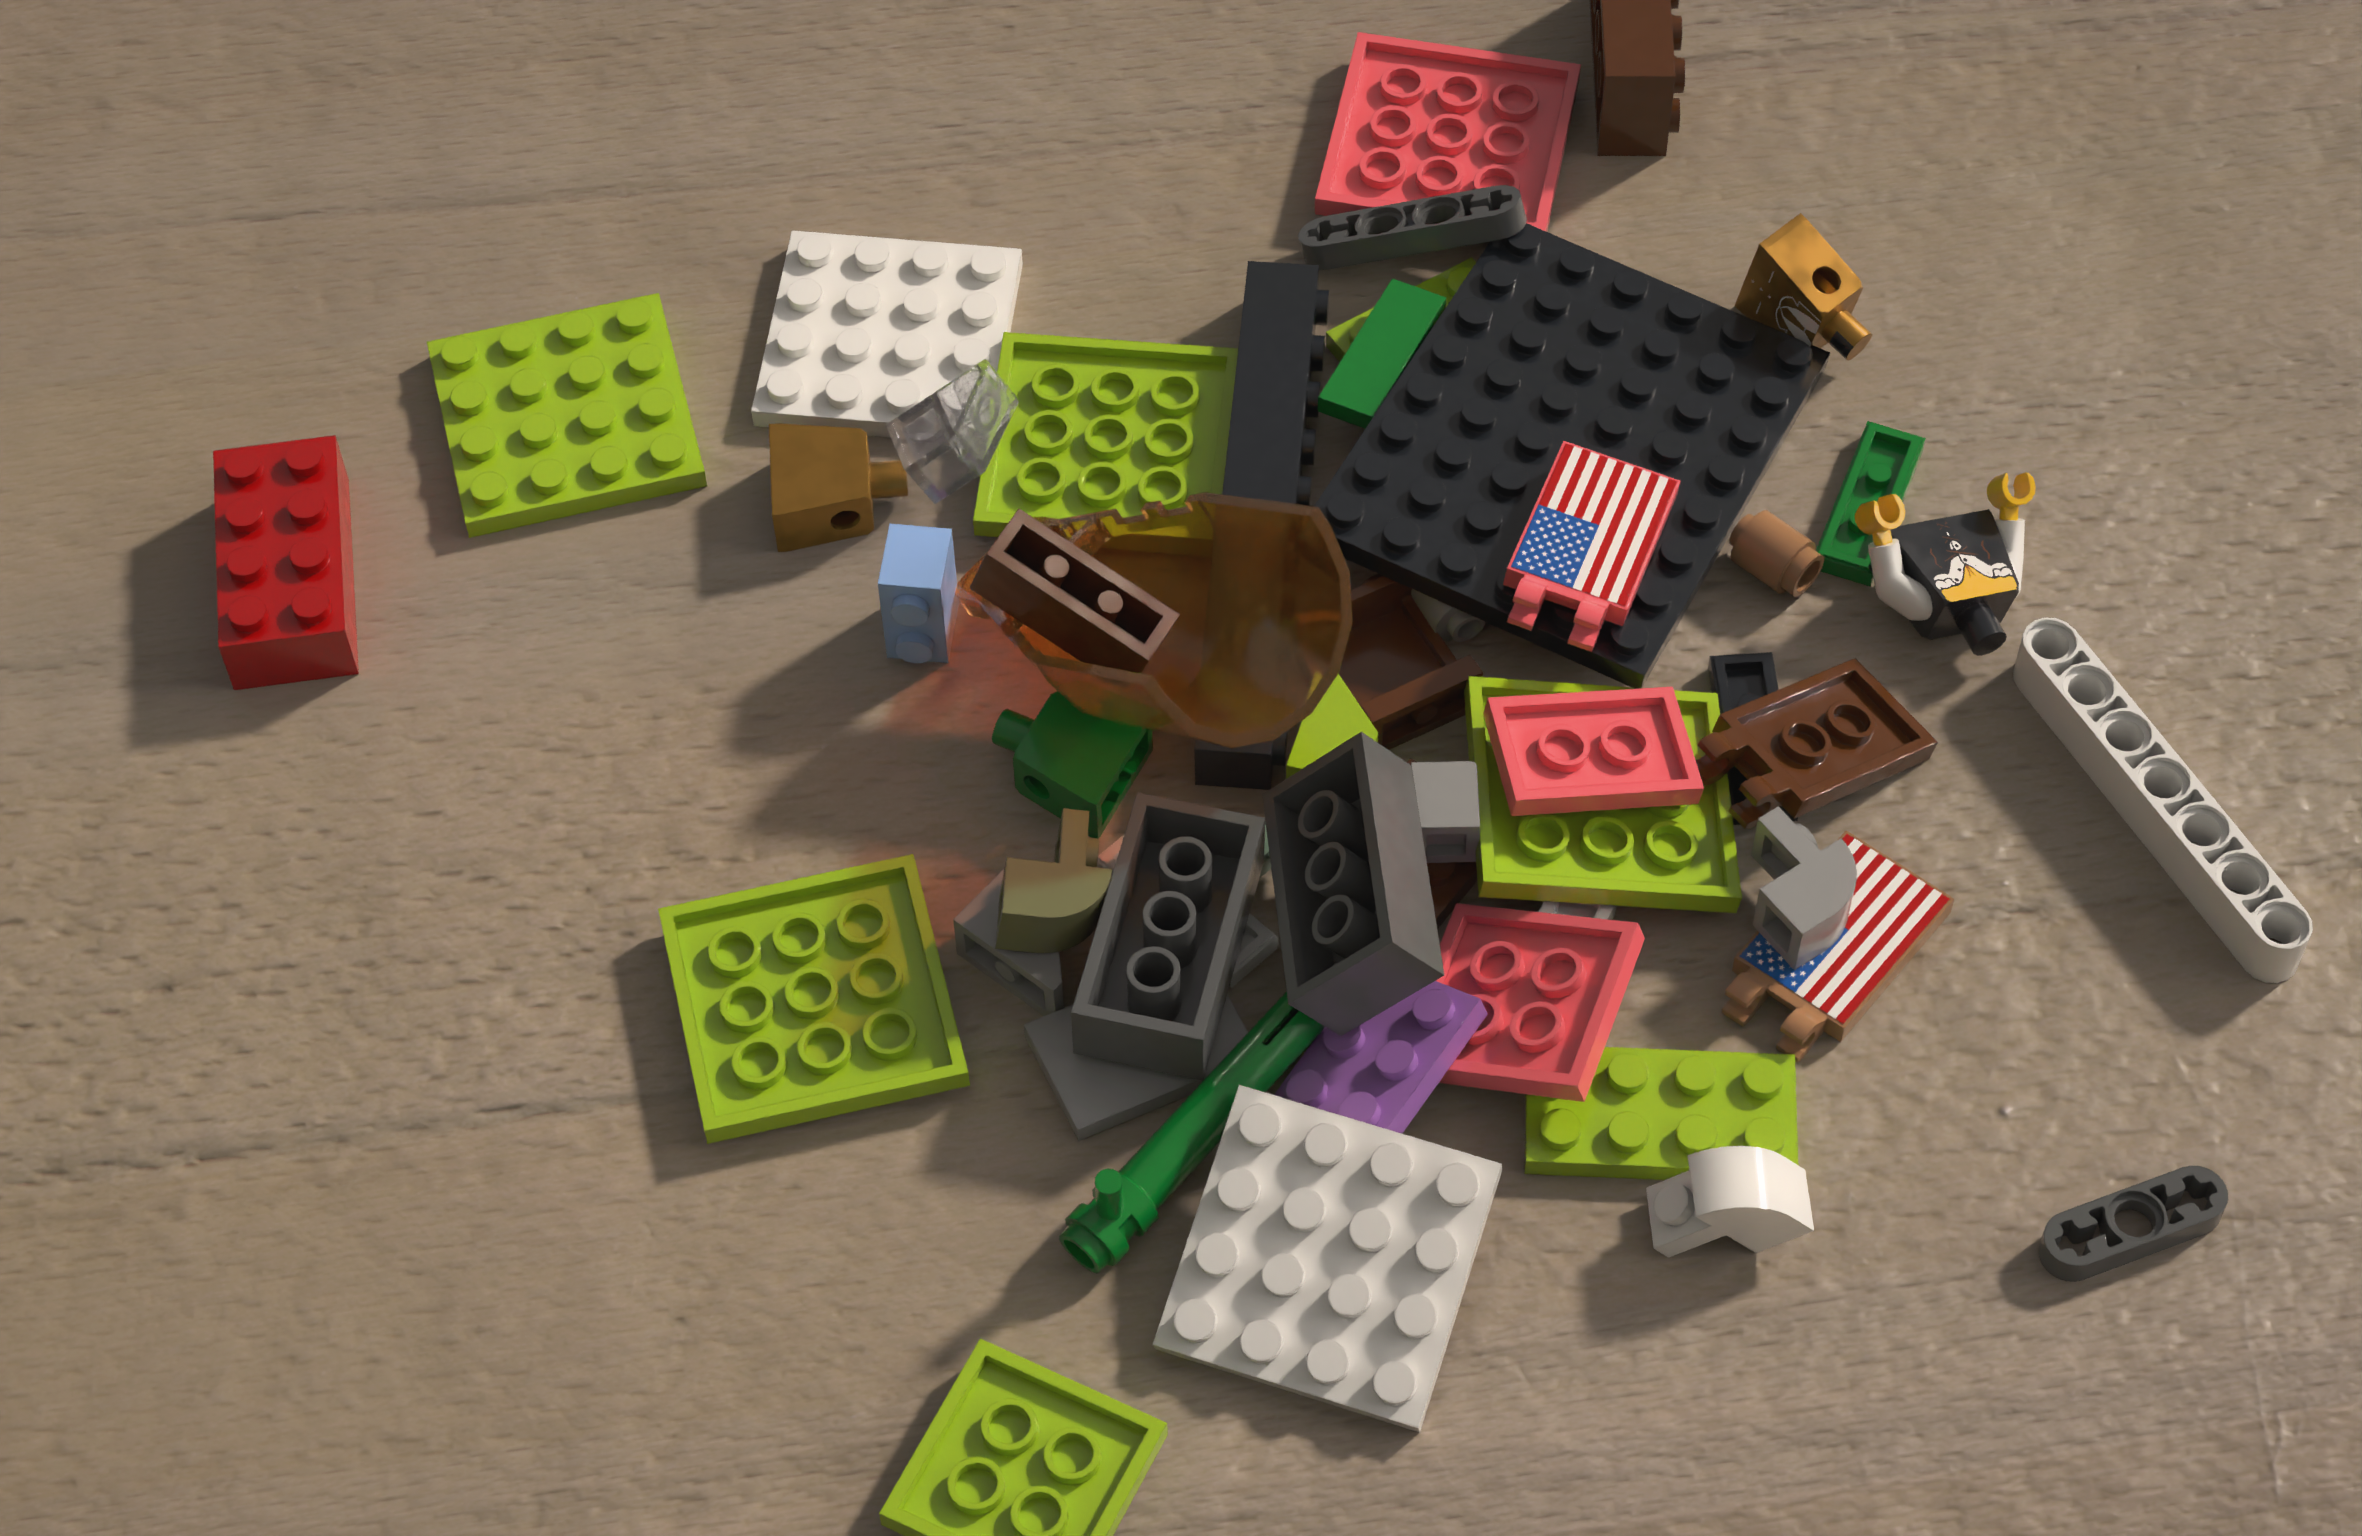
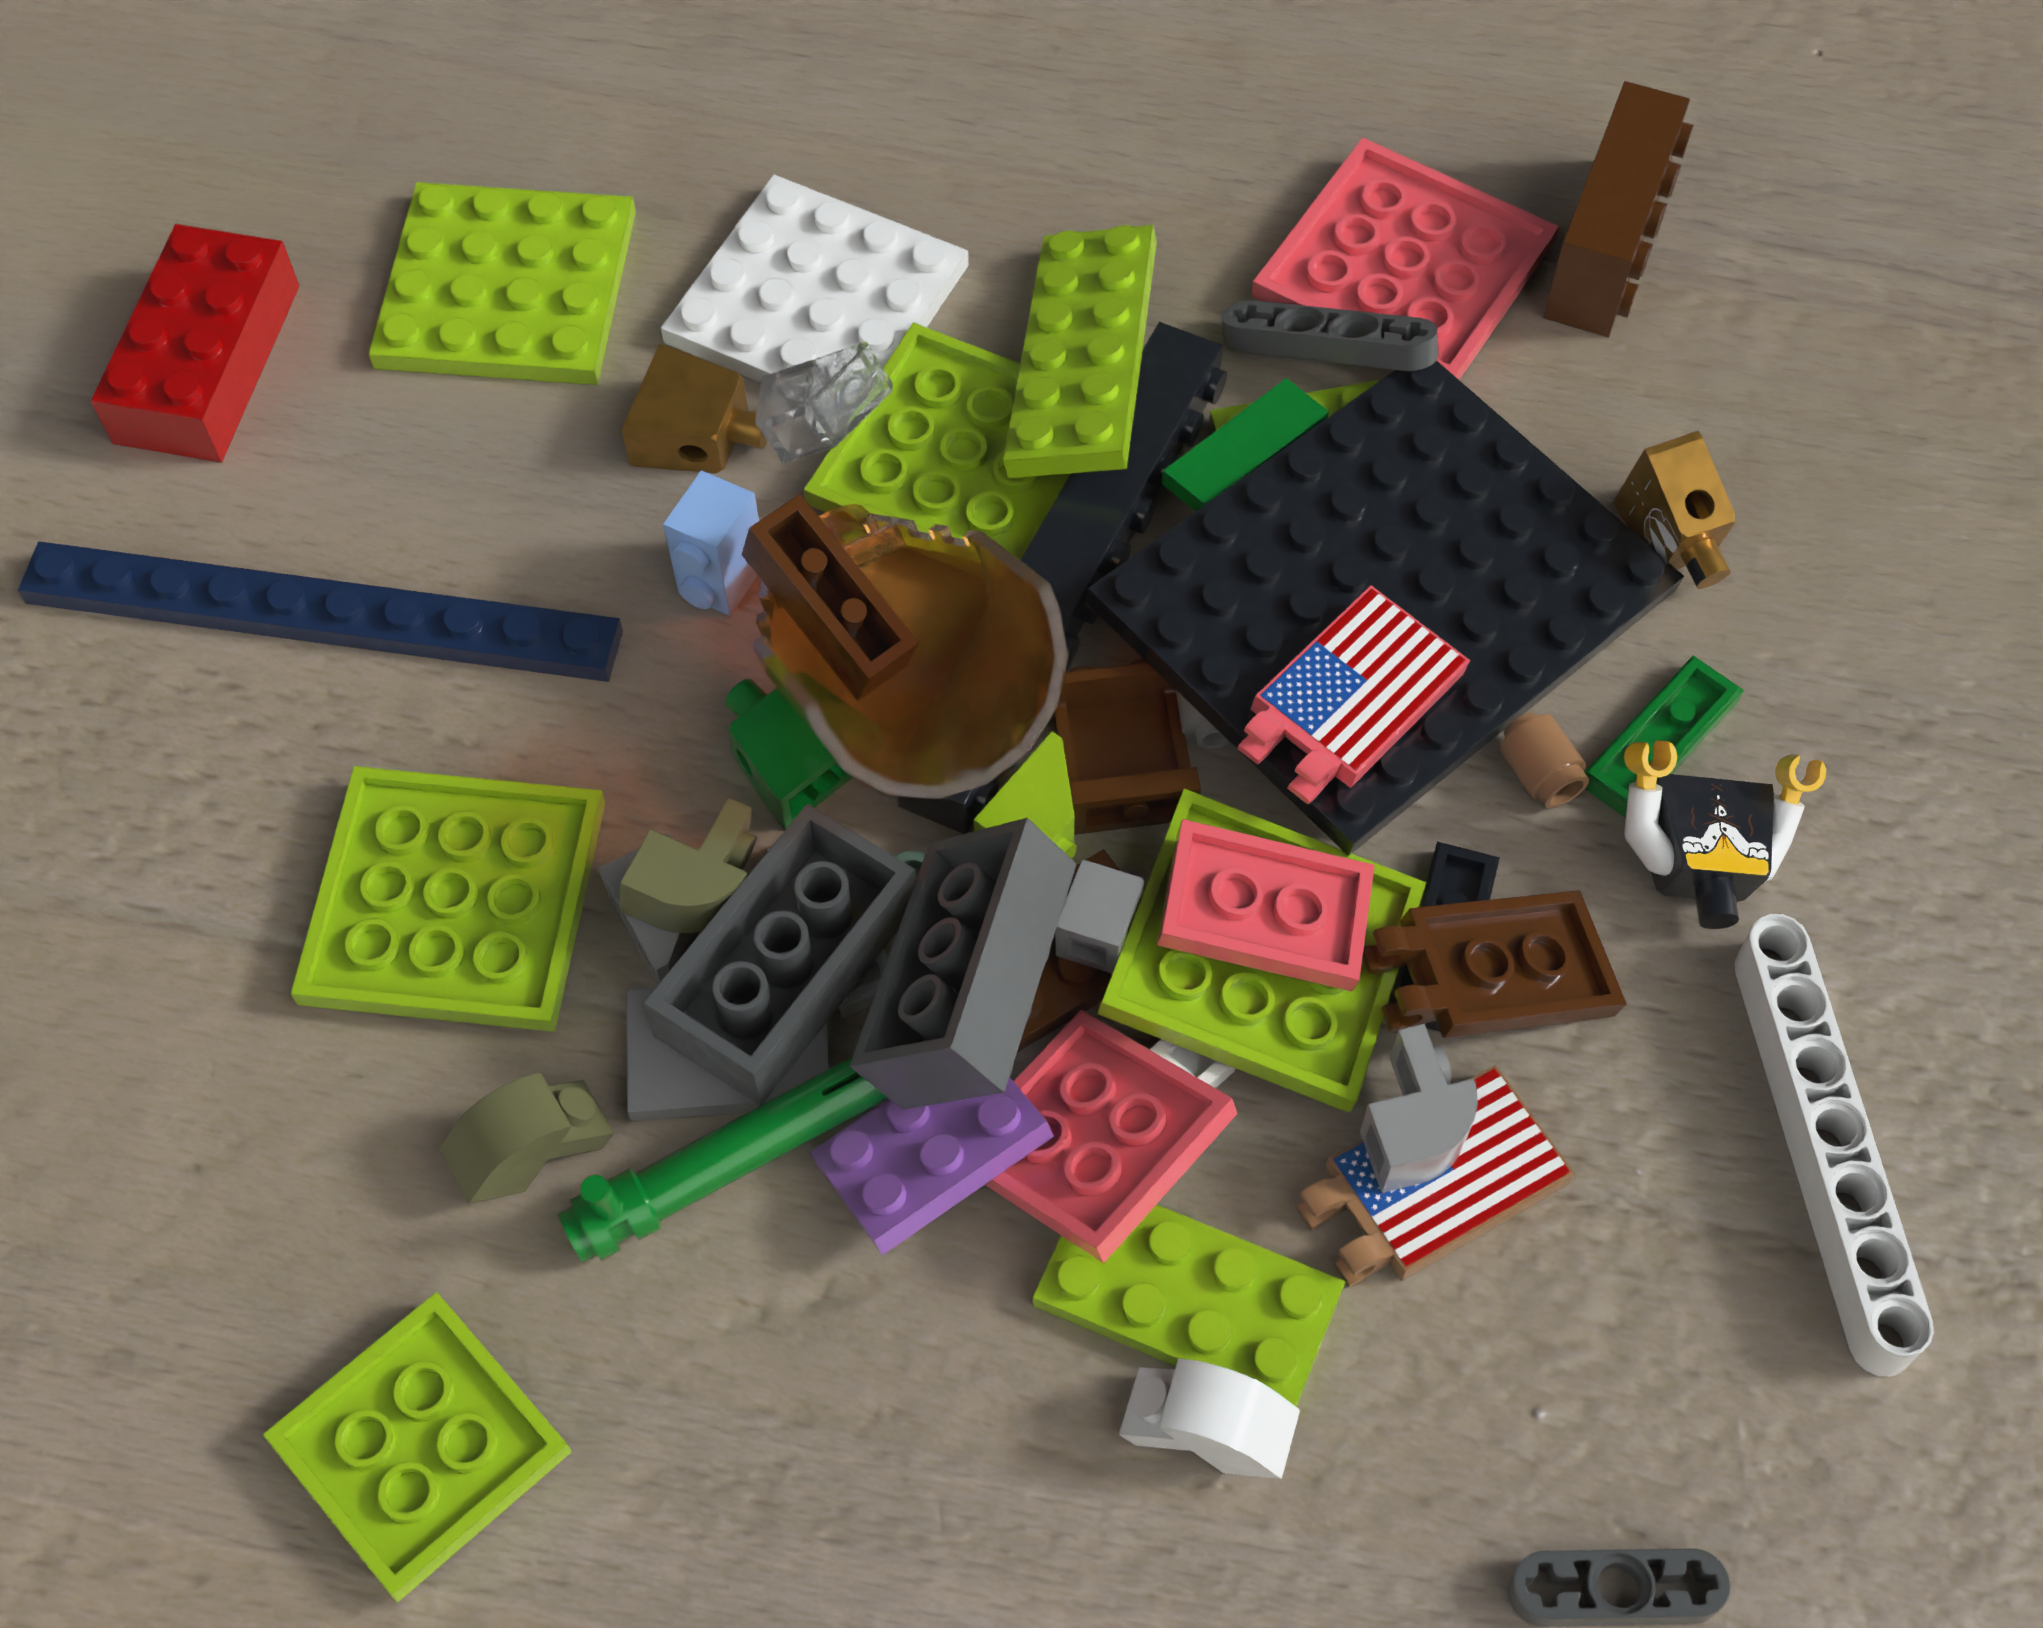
camera: 20 degrees right, 5 degrees up
(536, 781) = (322, 611): none -> dark blue plate
(989, 1178) = (516, 1130): none -> olive brick
(1188, 310) = (1082, 353): none -> lime plate
(1328, 1257) = (793, 1333): white plate -> none

